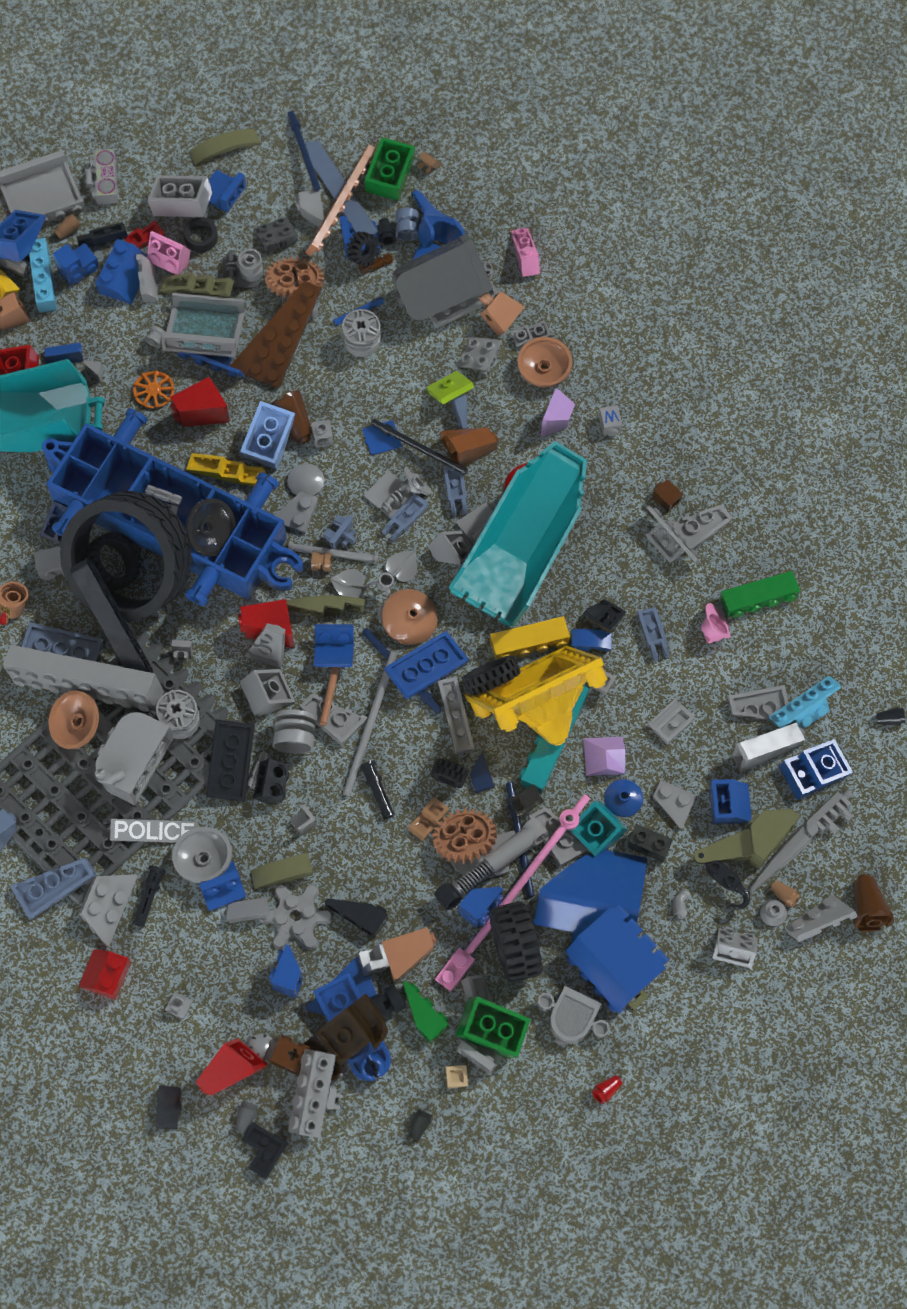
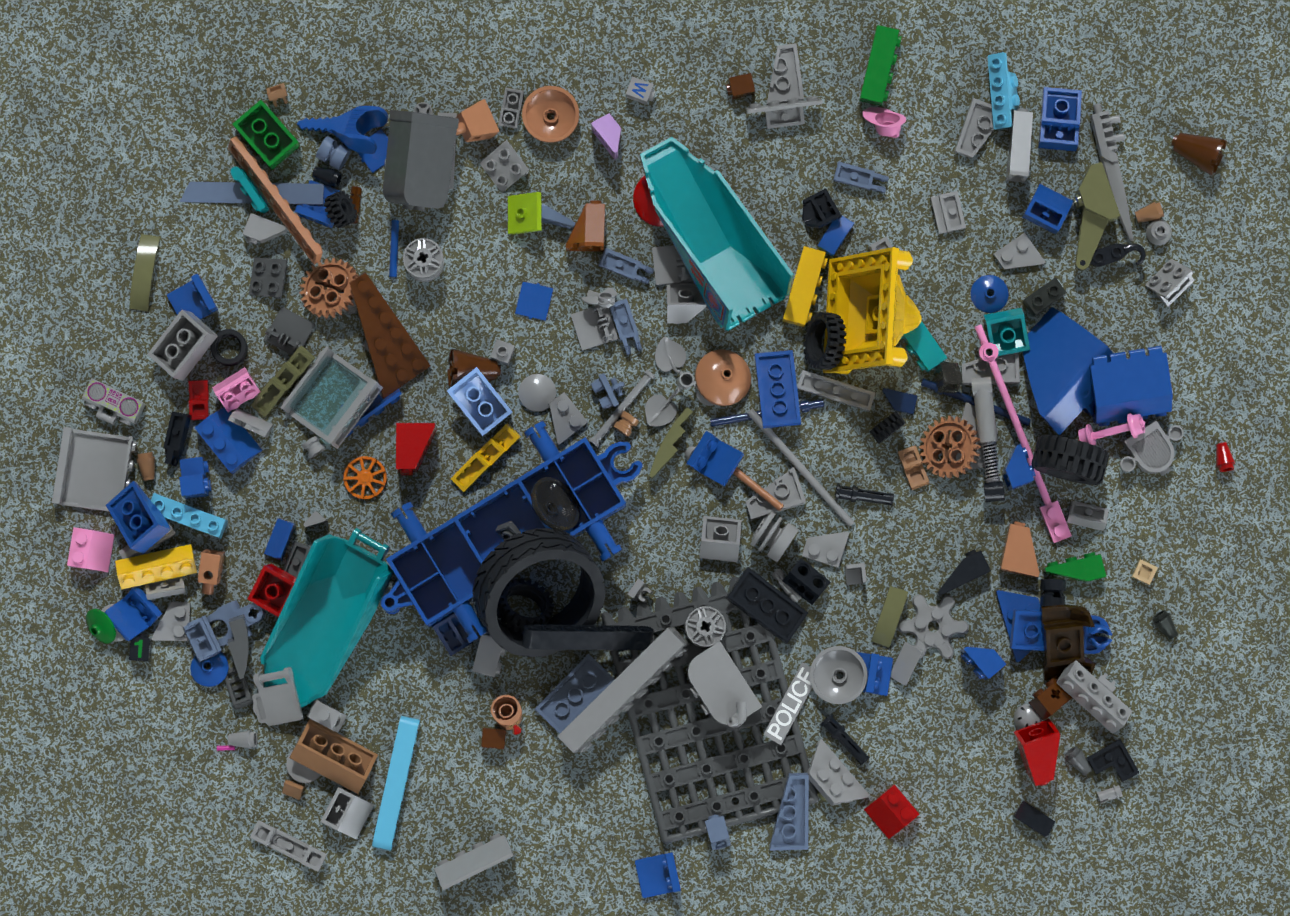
camera: 60 degrees left, 15 degrees up
(66, 719) = (655, 727): nougat dish -> none
(163, 495) = (492, 527): light grey axle -> none
(178, 1005) = (953, 764): light grey tile -> none
(230, 1164) = (1109, 794): none -> light grey pin
(250, 265) = (294, 320): light grey wheel -> none
(256, 616) = (661, 502): red slope -> none
(269, 646) = (684, 515): light grey wing -> none
(296, 128) = (164, 195): dark blue bar -> none
(312, 785) = (826, 548): none -> light grey wing
(338, 180) = (249, 189): none -> teal hinge
(373, 960) = (1010, 584): light grey panel -> none
(389, 430) = (533, 292): black bar -> none
(479, 1056) = (1137, 543): light grey bracket -> none
(492, 1027) = (1126, 520): green brick -> none
(525, 252) = (425, 62): bright pink slope -> none
(583, 983) = (1135, 426): none -> bright pink piece
(604, 756) = (944, 286): lavender slope -> none
(678, 903) = (1106, 305): light grey arm -> none
(826, 913) = (1187, 196): light grey wing -> none
(891, 717) = (1052, 26): black cone -> none

